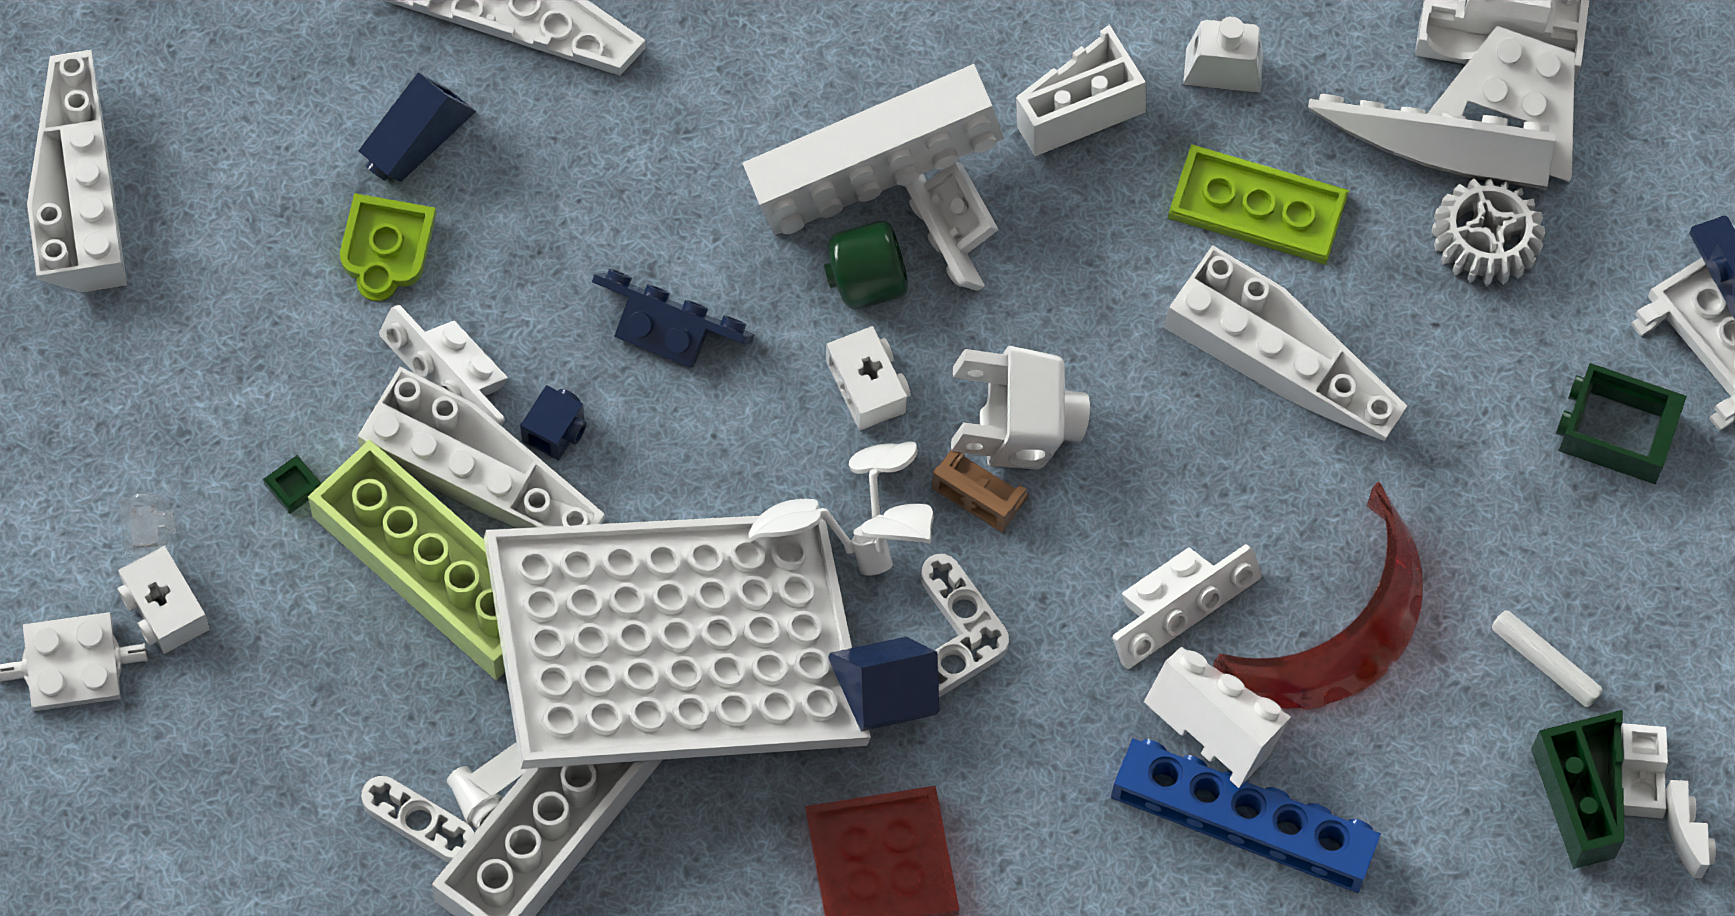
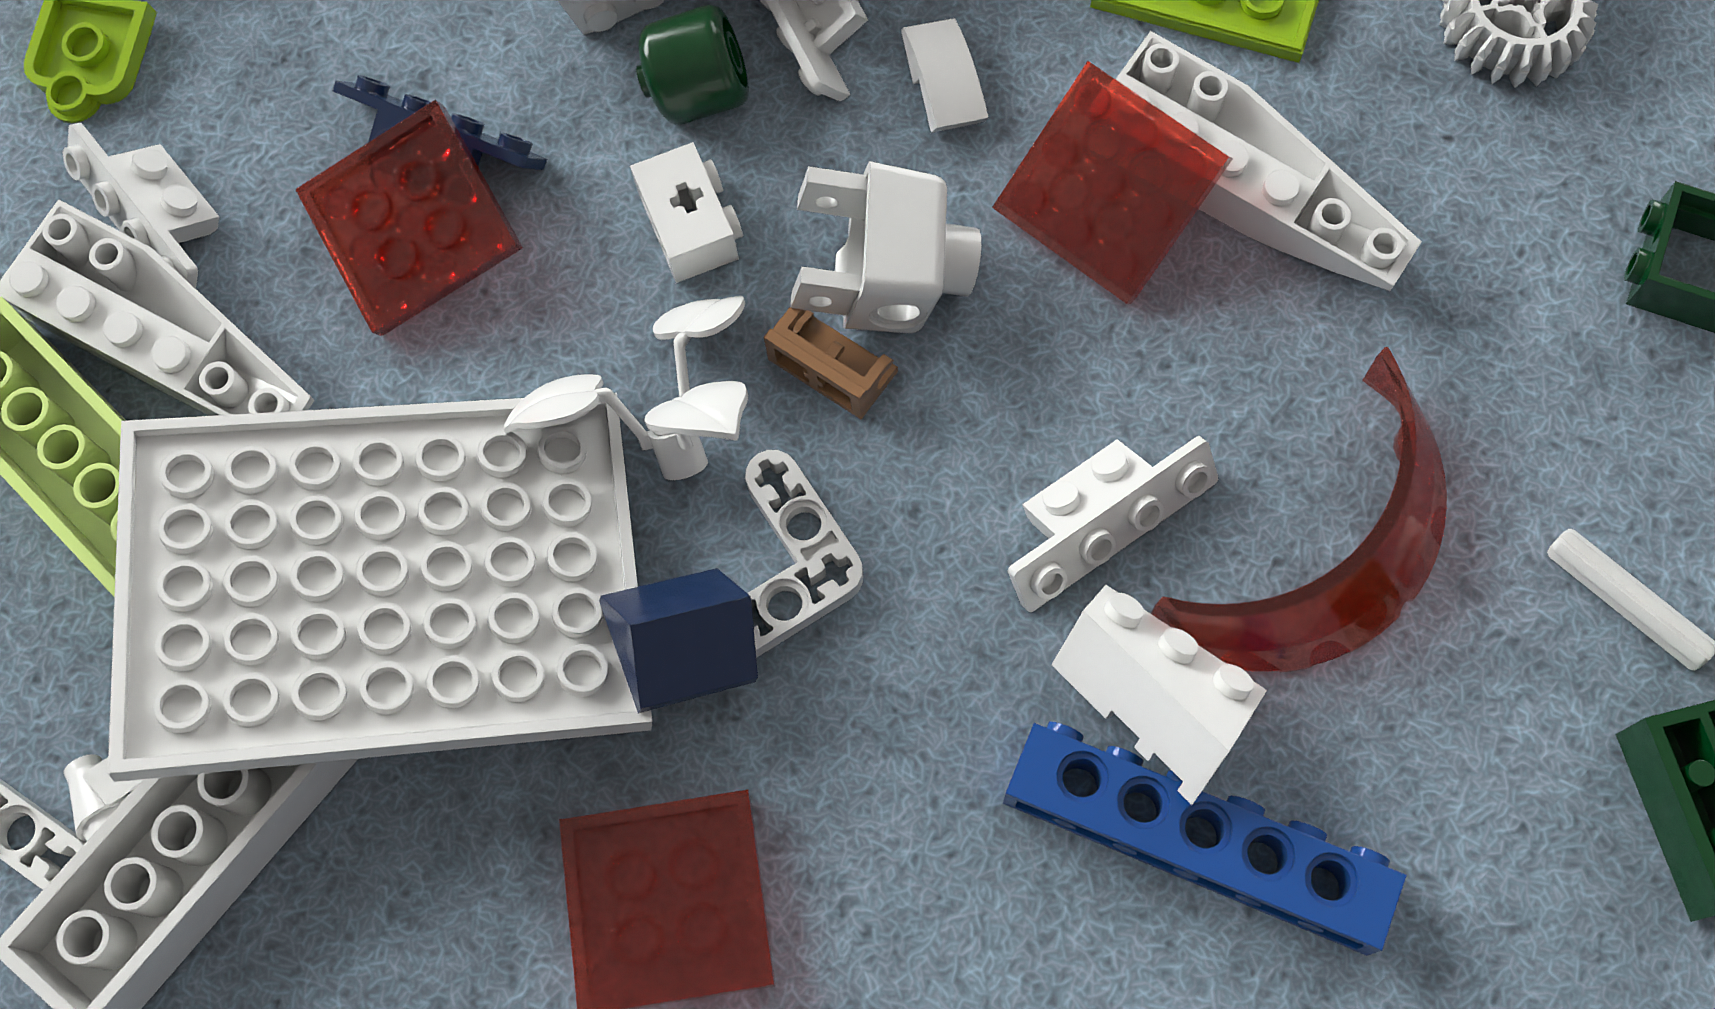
camera: 10 degrees right, 5 degrees up
(554, 422) = (267, 272): dark blue brick -> none
(661, 382) = (408, 218): none -> clear red plate
(1058, 271) = (945, 74): none -> white slope
(1183, 360) = (1111, 182): none -> clear red plate

